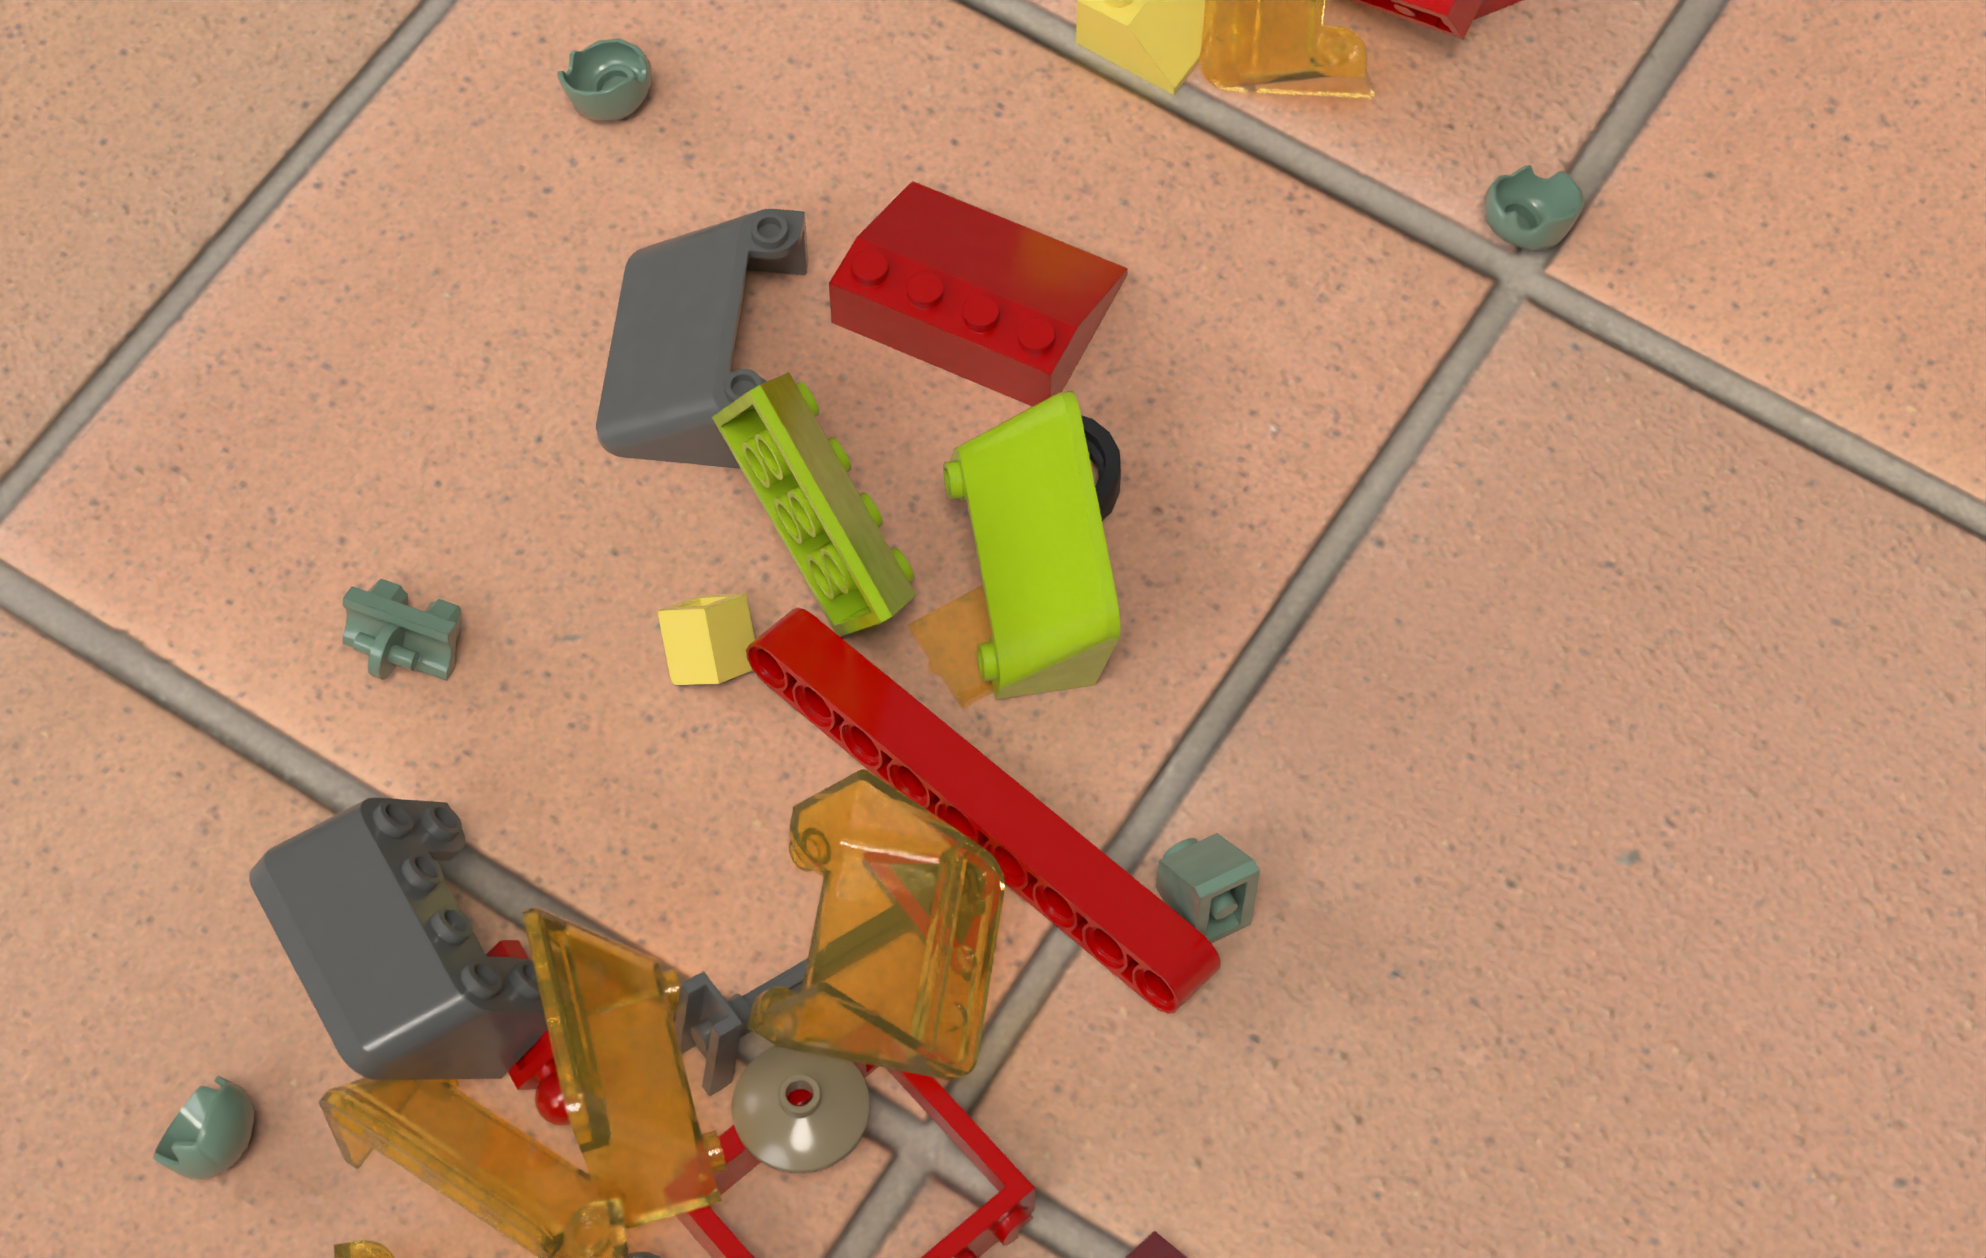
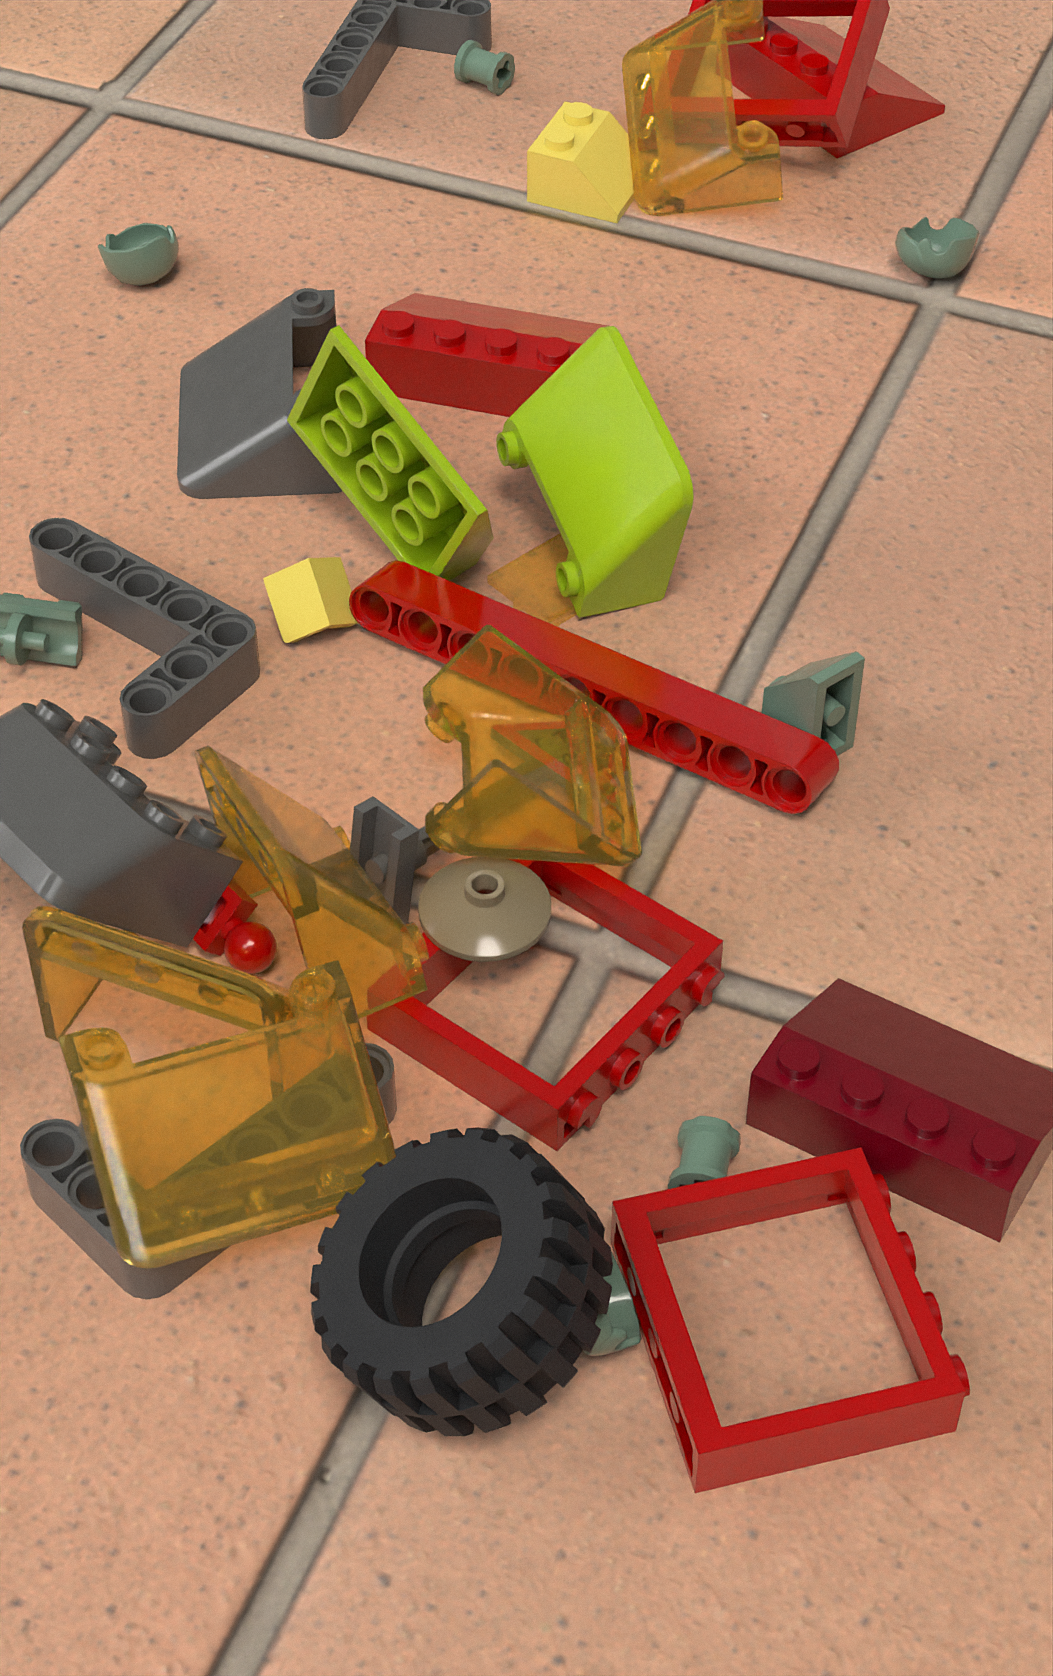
camera: 10 degrees left, 15 degrees down
(538, 644) = (202, 642): none -> dark grey beam

